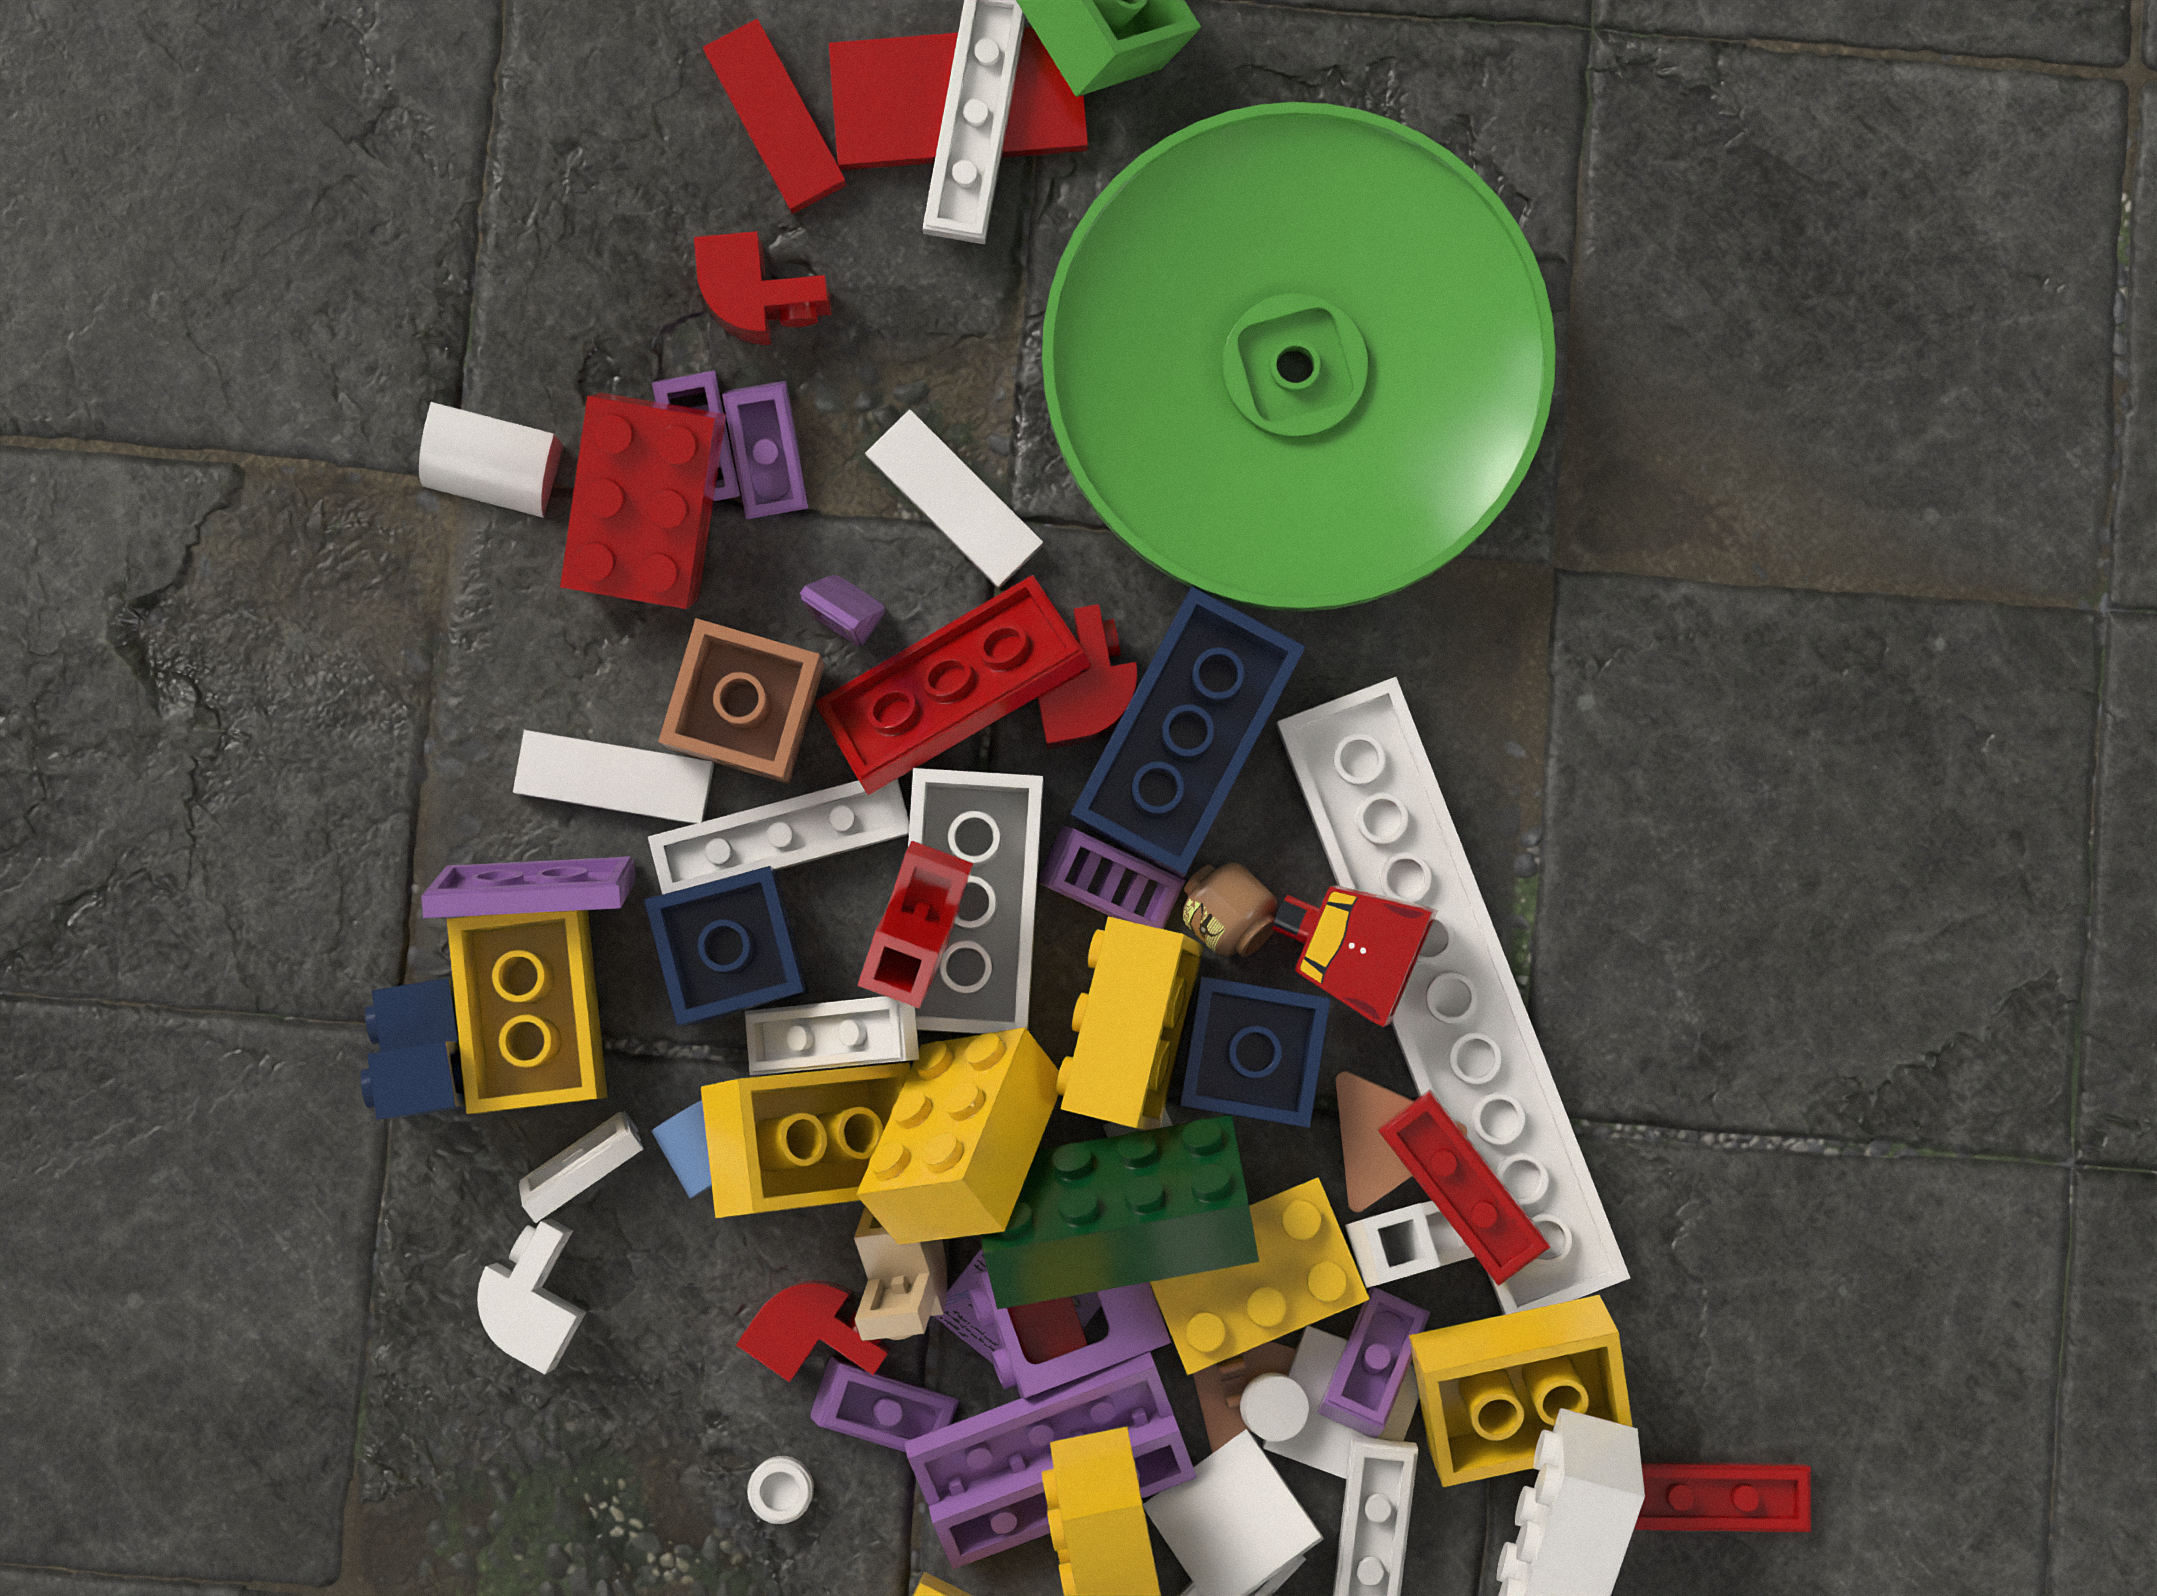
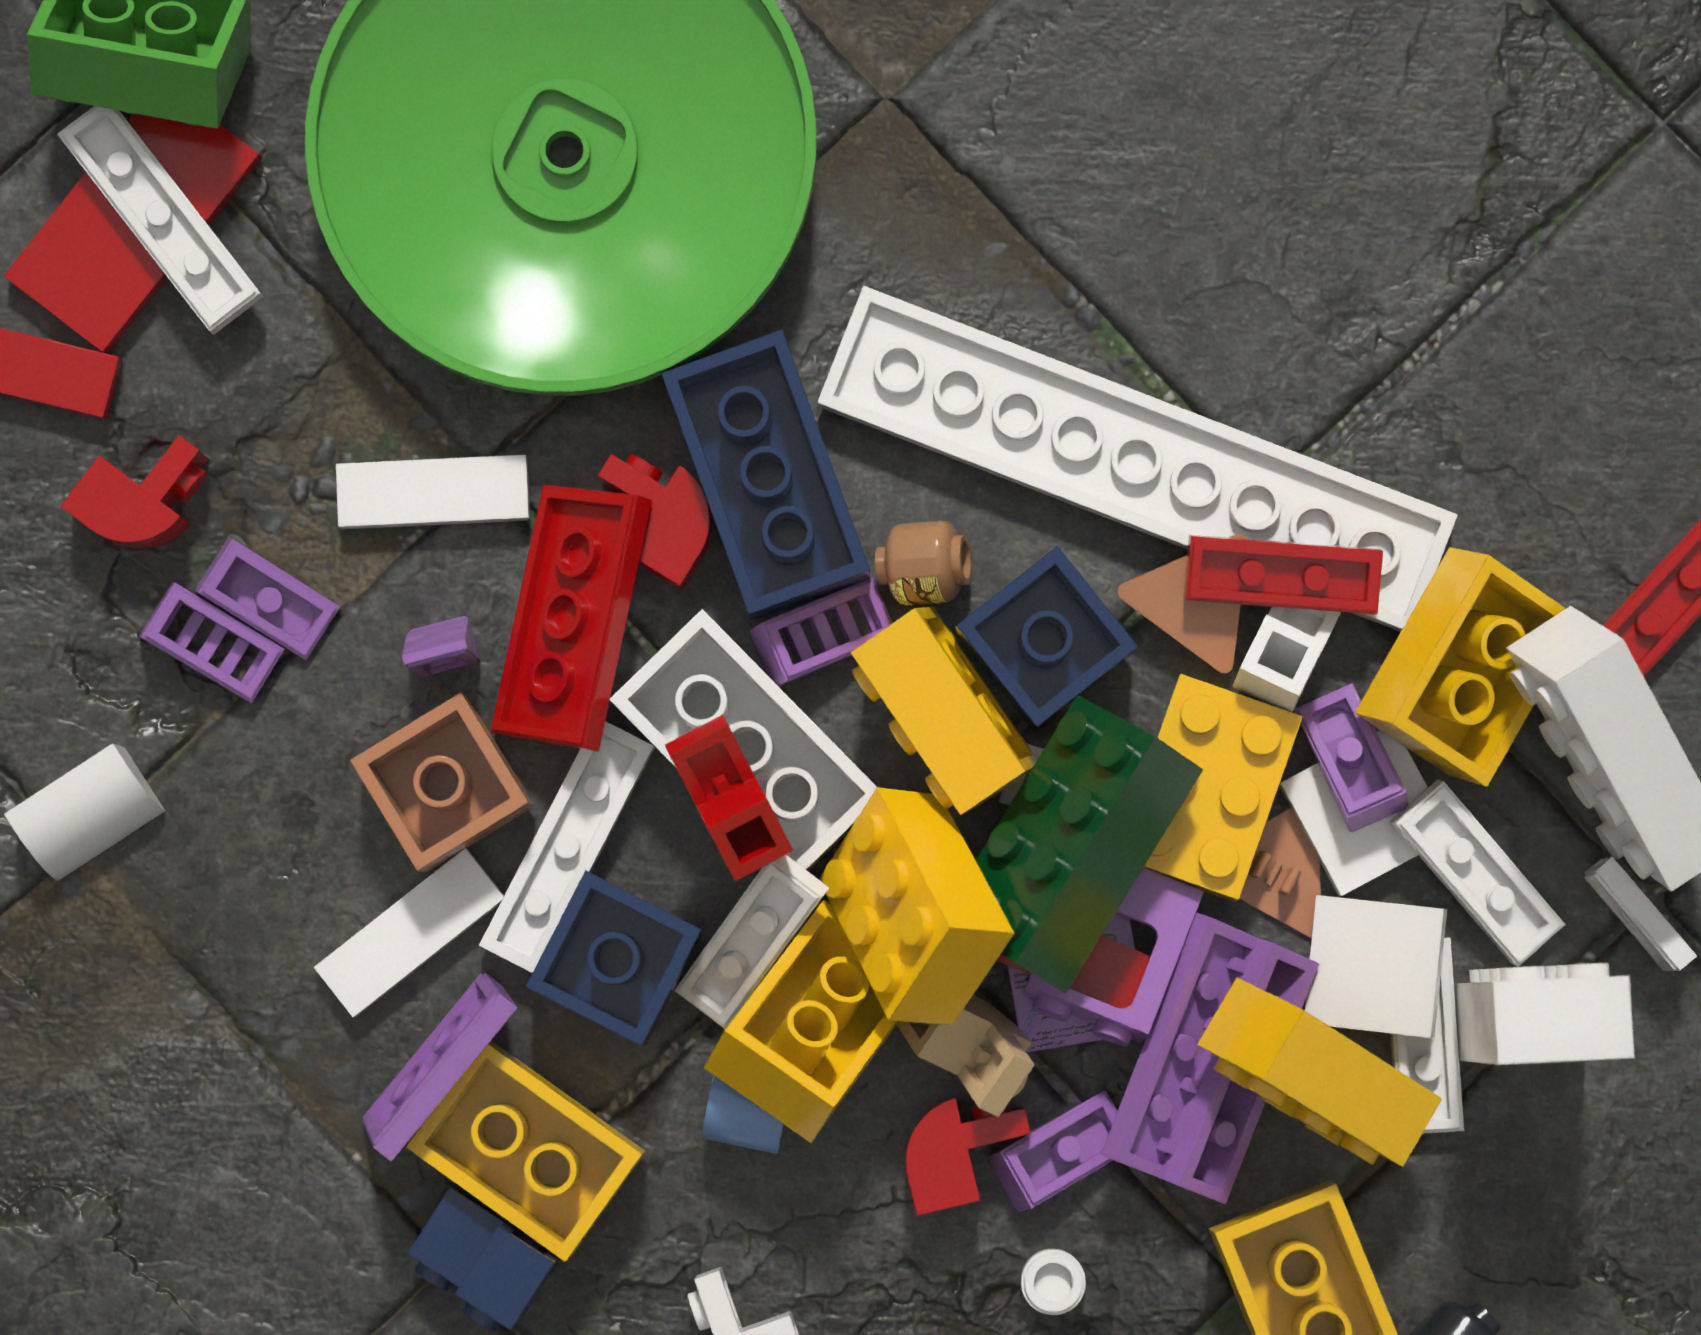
camera: 45 degrees left, 0 degrees up
(579, 1166) = (678, 1216): white tile -> none
(642, 500) = (223, 722): red brick -> none
(1274, 1407) = (1318, 859): white tile -> none
(1358, 946) = (1037, 491): red torso -> none

